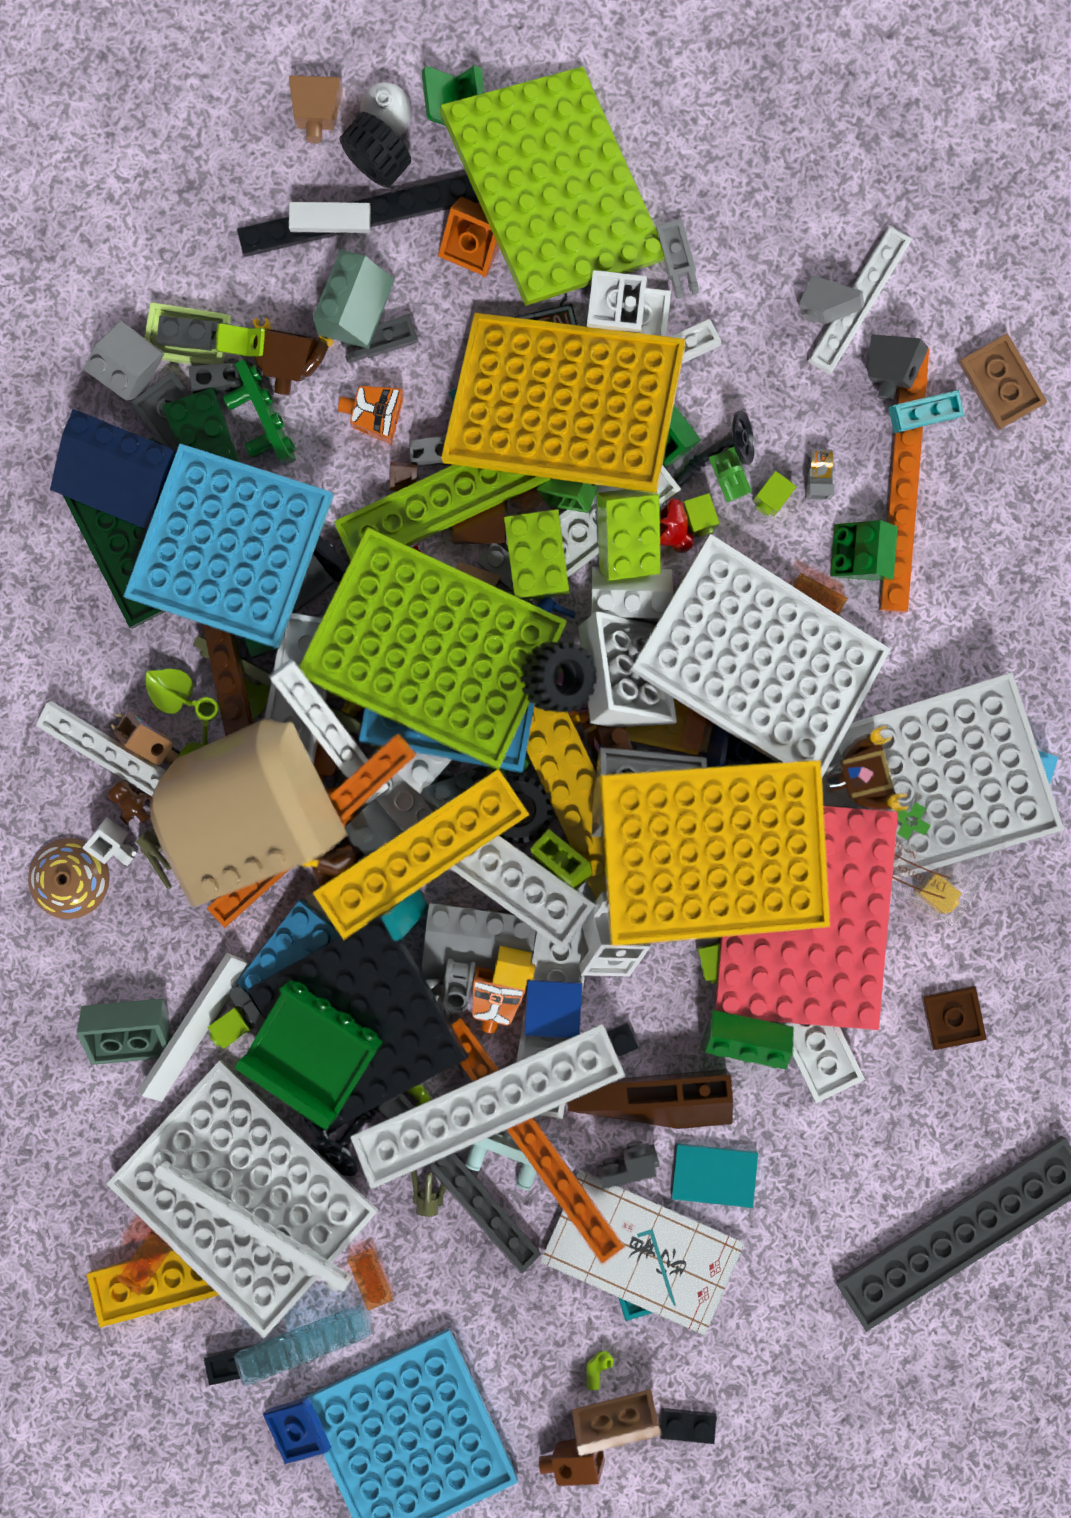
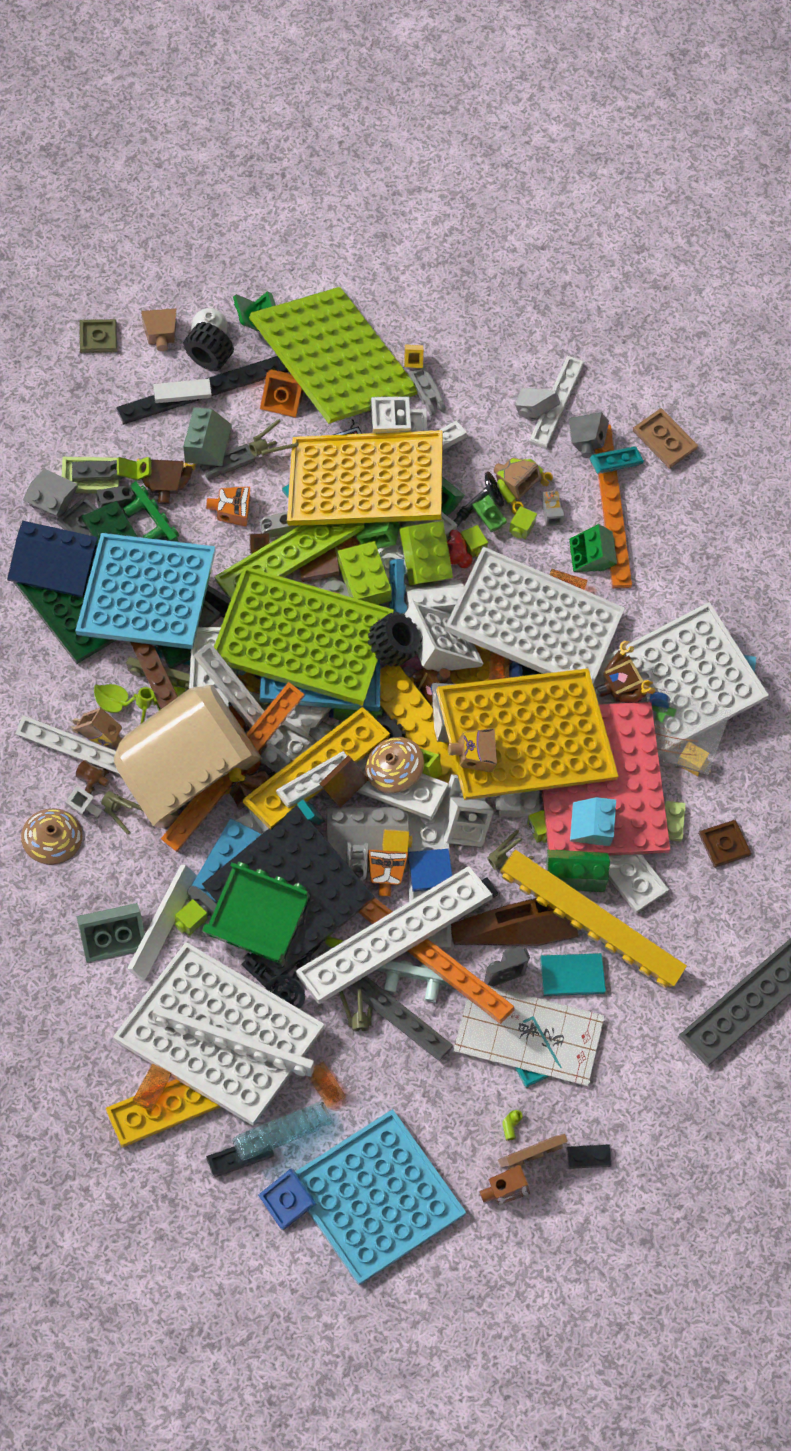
camera: 15 degrees left, 25 degrees down
(227, 105) = (98, 336): none -> olive tile
(414, 877) = (309, 782): none -> white tile
(425, 324) = (260, 446): none -> olive plant
(452, 884) = (343, 781): none -> reddish brown tile
(543, 865) = (399, 772): none -> medium nougat dish
(580, 576) = (396, 580): none -> dark azure plate
(637, 883) = (476, 750): none -> medium nougat torso
(649, 1001) = (499, 857): none -> olive plant
(668, 201) = (413, 356): none -> yellow brick
(752, 1123) = (593, 919): none -> yellow brick
(780, 422) = (517, 478): none -> medium nougat torso
(782, 986) = (593, 821): none -> medium azure slope
(895, 974) = (675, 819): none -> yellowish green plate
(911, 813) = (660, 699): none -> blue tile

